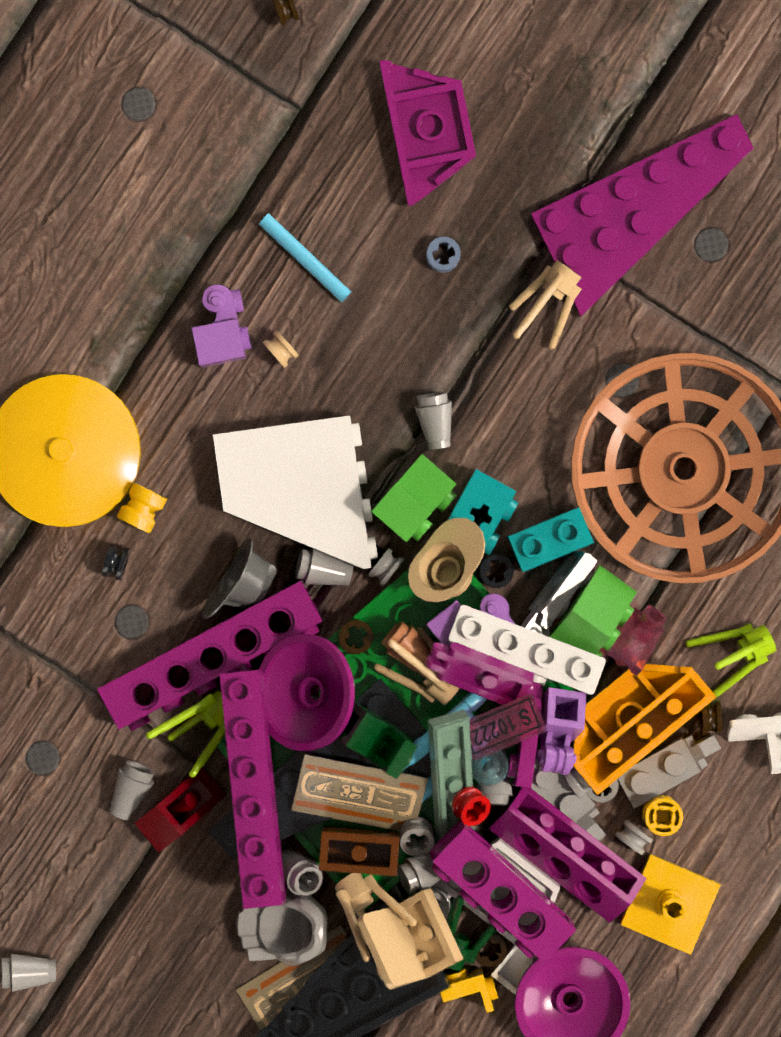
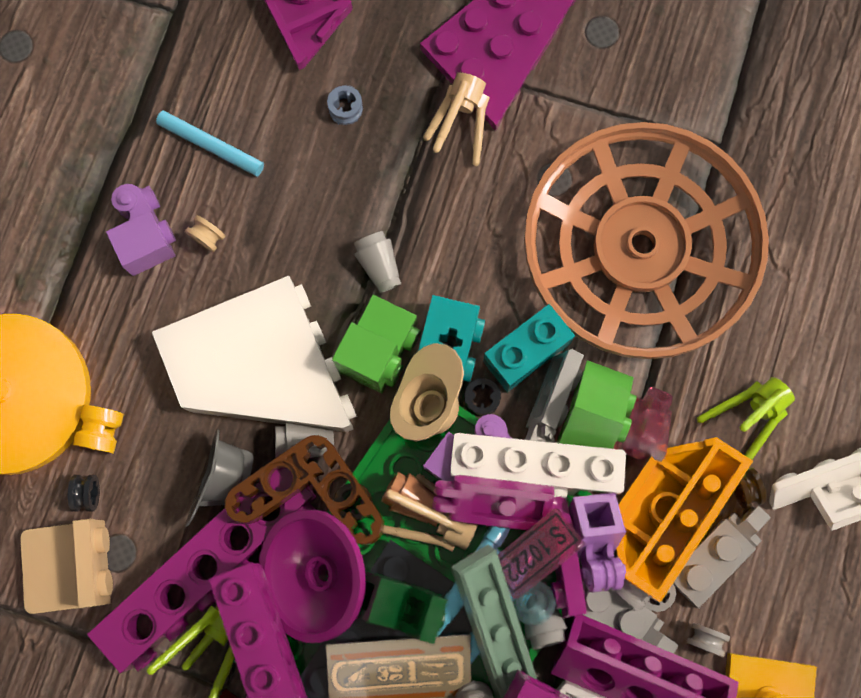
camera: 10 degrees left, 10 degrees down
(86, 623) = (66, 566): none -> tan bracket
(320, 603) = (303, 476): none -> reddish brown beam
(385, 567) = (366, 422): light grey bush -> none
(471, 806) = (525, 653): red bush -> none
(658, 811) = (724, 603): yellow wheel -> none

